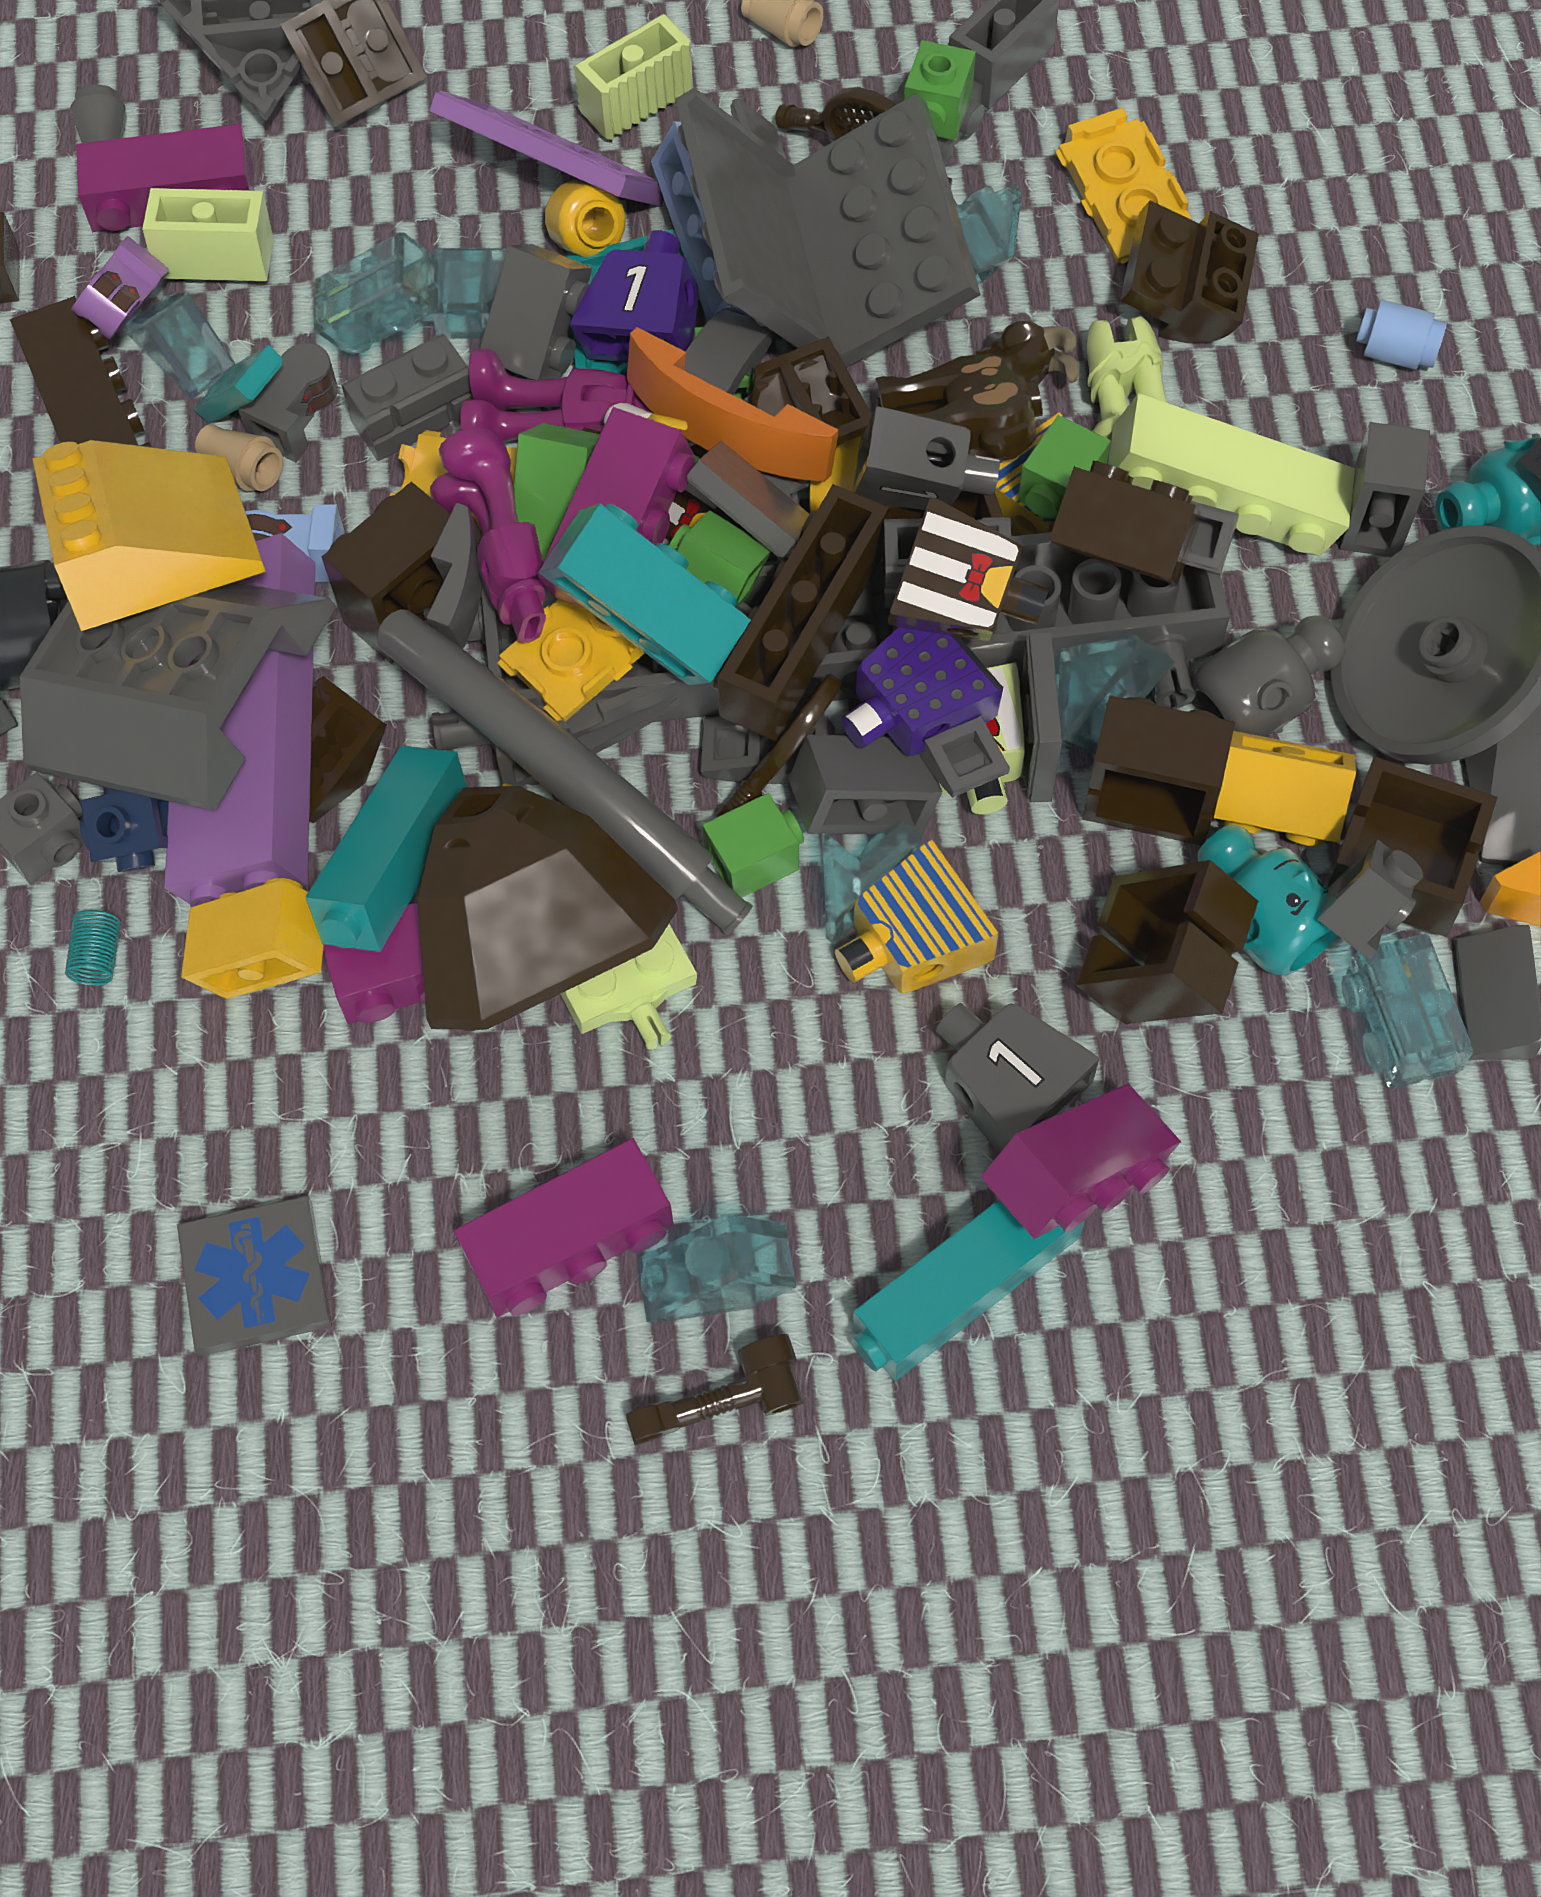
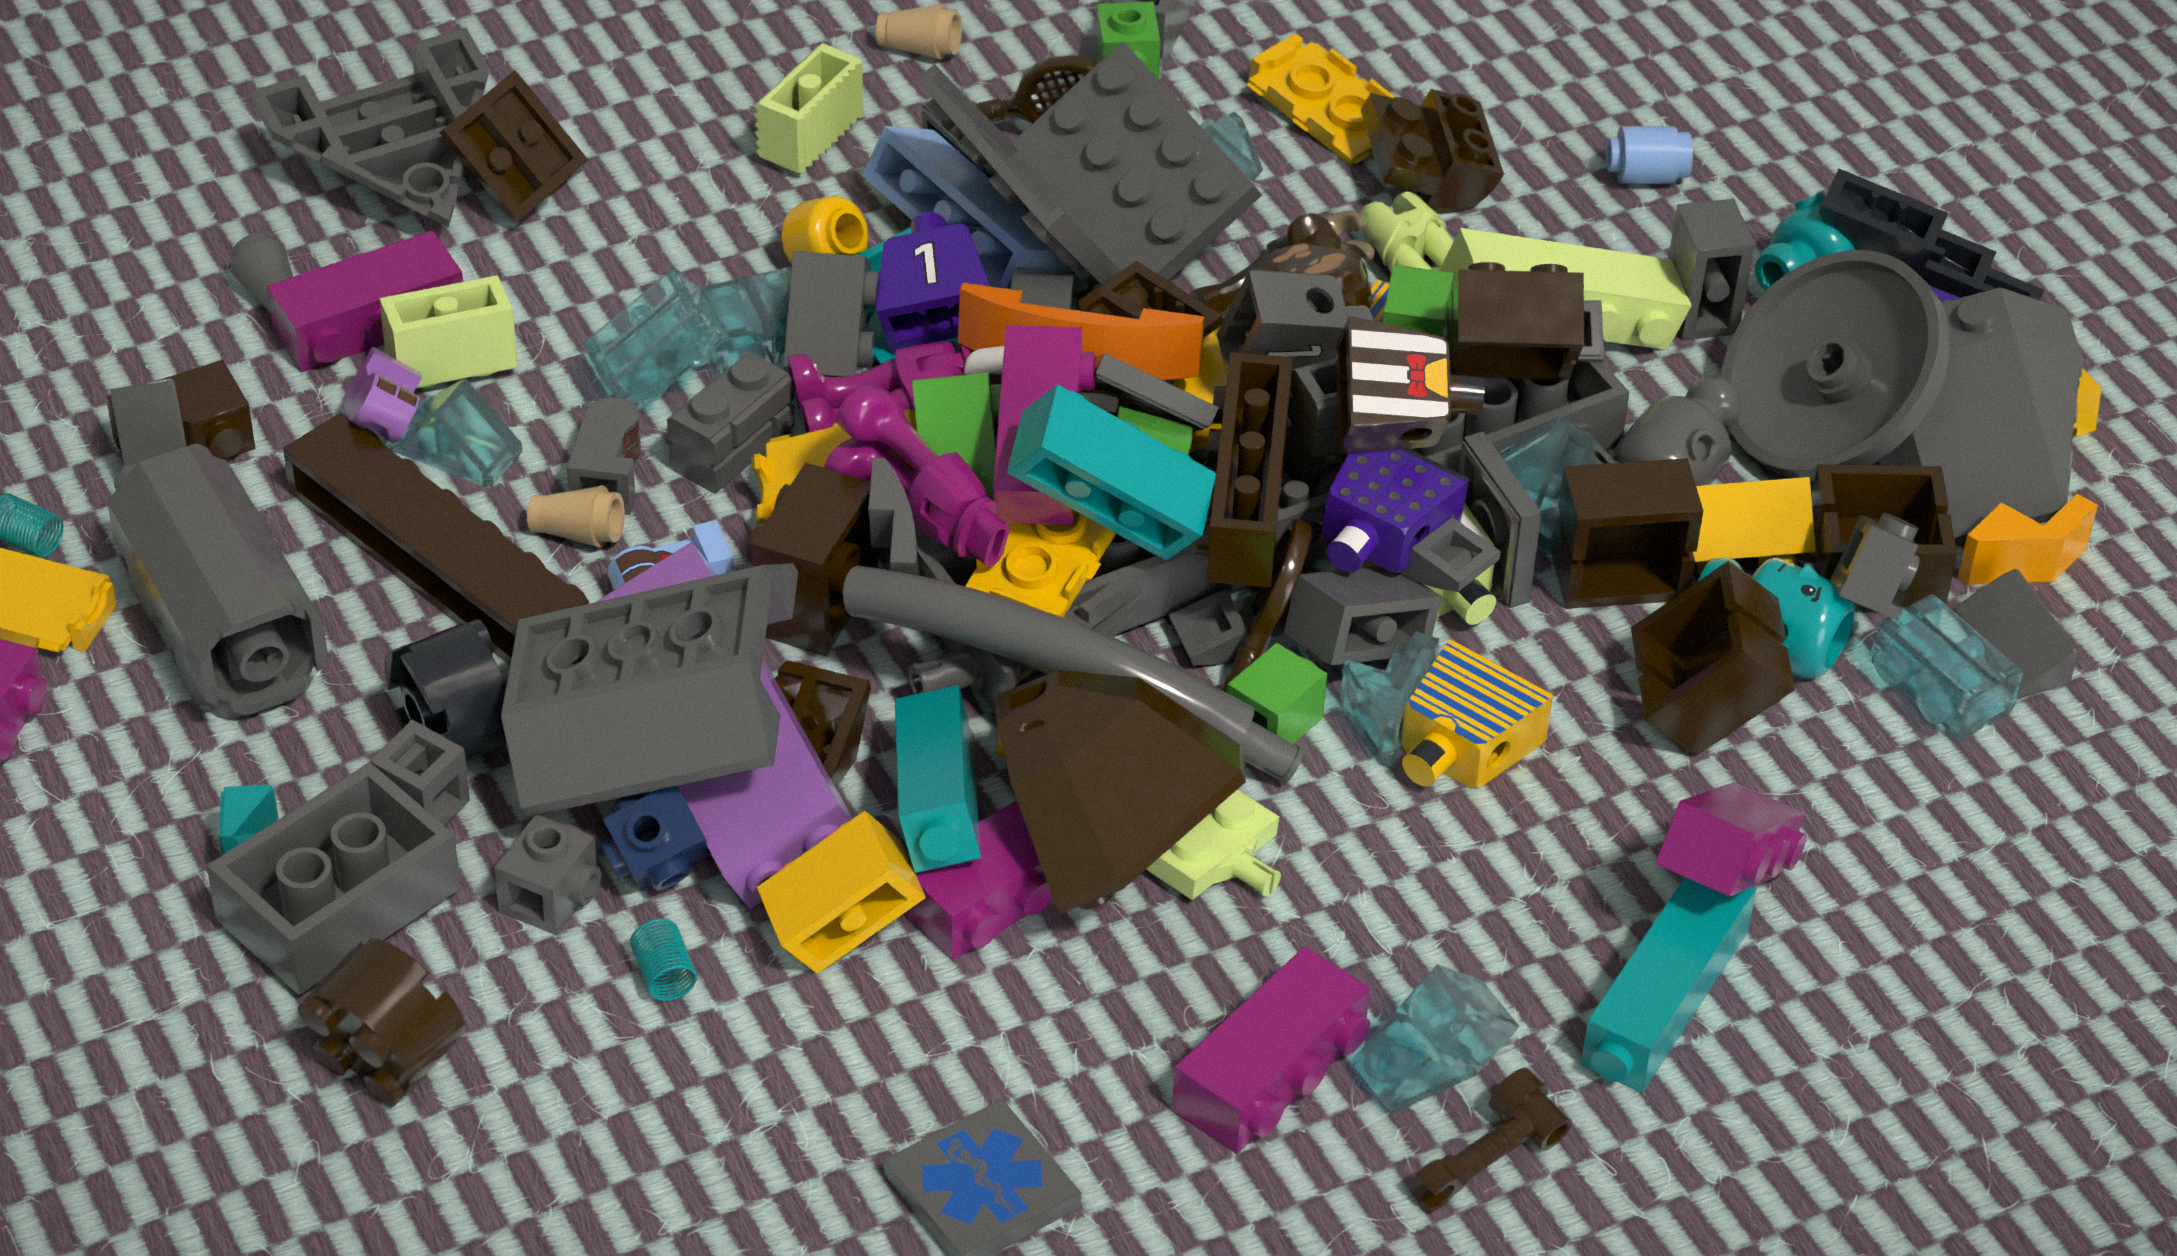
camera: 25 degrees left, 20 degrees down
(141, 526) = (551, 563): yellow slope -> none
(239, 384) = (555, 448): teal tile -> none
(548, 148) = (754, 180): medium lavender tile -> none
(1012, 1070) = (1617, 810): dark grey torso -> none

